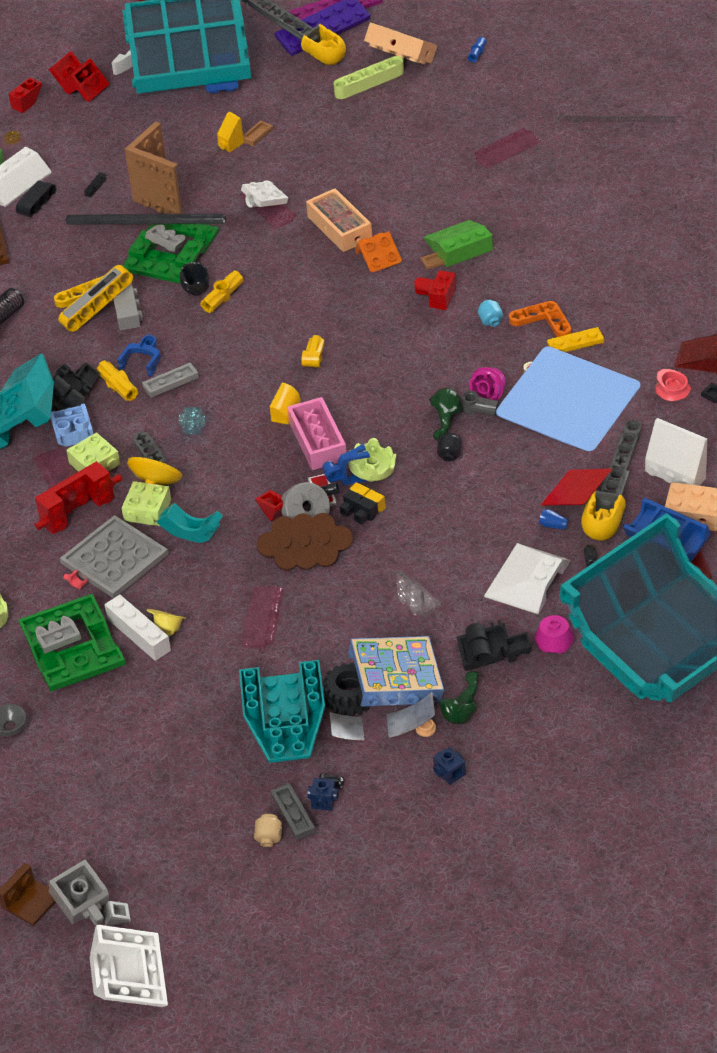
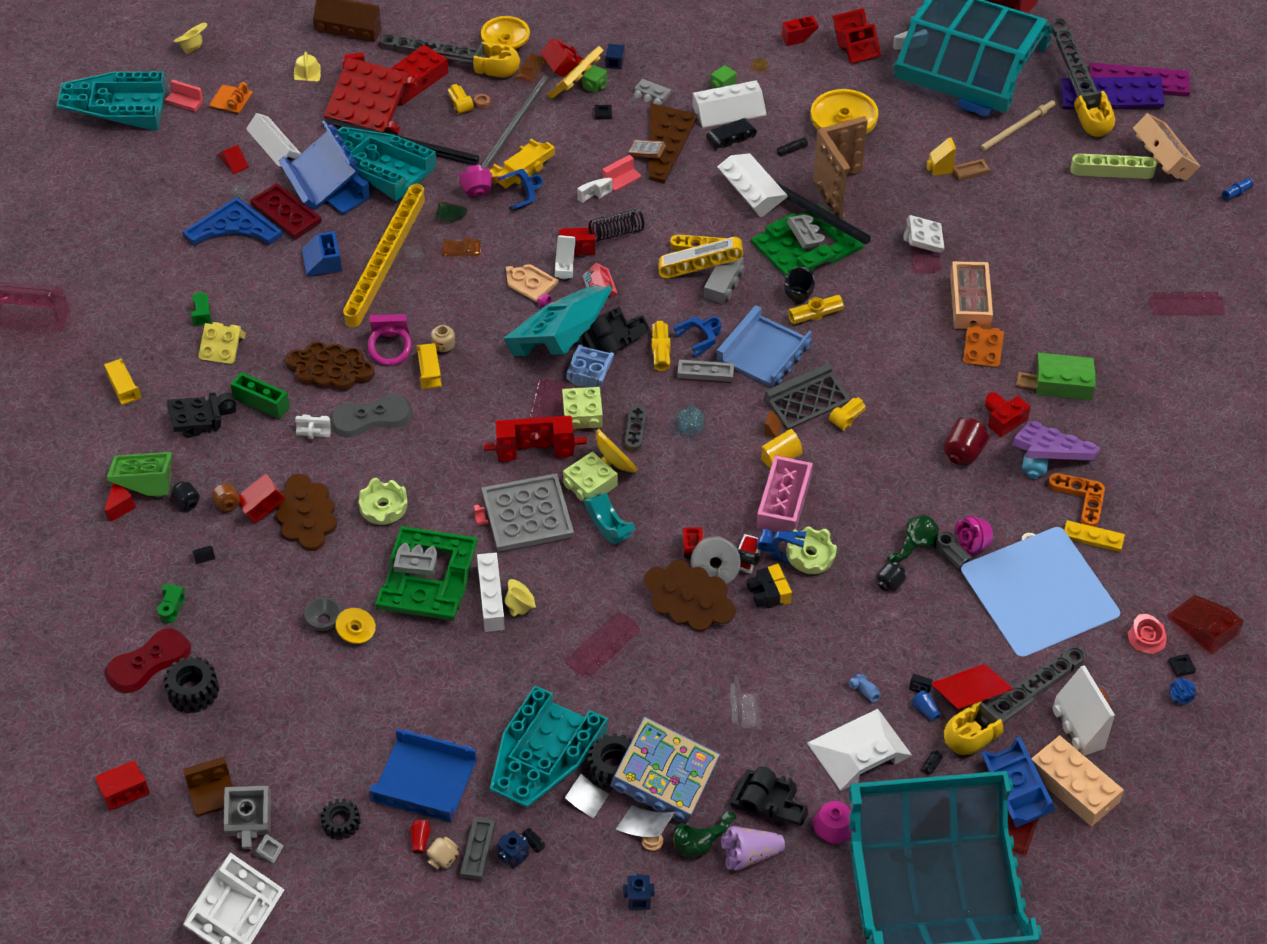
camera: 30 degrees right, 5 degrees up
(15, 357) = (599, 276): none -> coral panel
(44, 713) = (356, 619): none -> yellow dish
(88, 225) = (752, 183): none -> white slope
(113, 135) = (842, 106): none -> yellow dish
(160, 865) = (342, 829): none -> black tyre
(200, 786) = (425, 775): none -> blue panel
(204, 341) = (763, 348): none -> medium blue panel
(236, 829) = (419, 835): none -> red cone
(255, 353) = (797, 386): none -> dark grey fence
(260, 391) = (772, 425): none -> dark orange slope
(276, 64) = (1040, 111): none -> tan bar
(425, 322) = (966, 441): none -> dark red cylinder
(491, 293) = (1051, 444): none -> medium lavender wing
(496, 533) = (865, 687): none -> medium blue arm
(505, 687) = (750, 846): none -> lavender cone
(535, 507) = (920, 683): none -> black tile

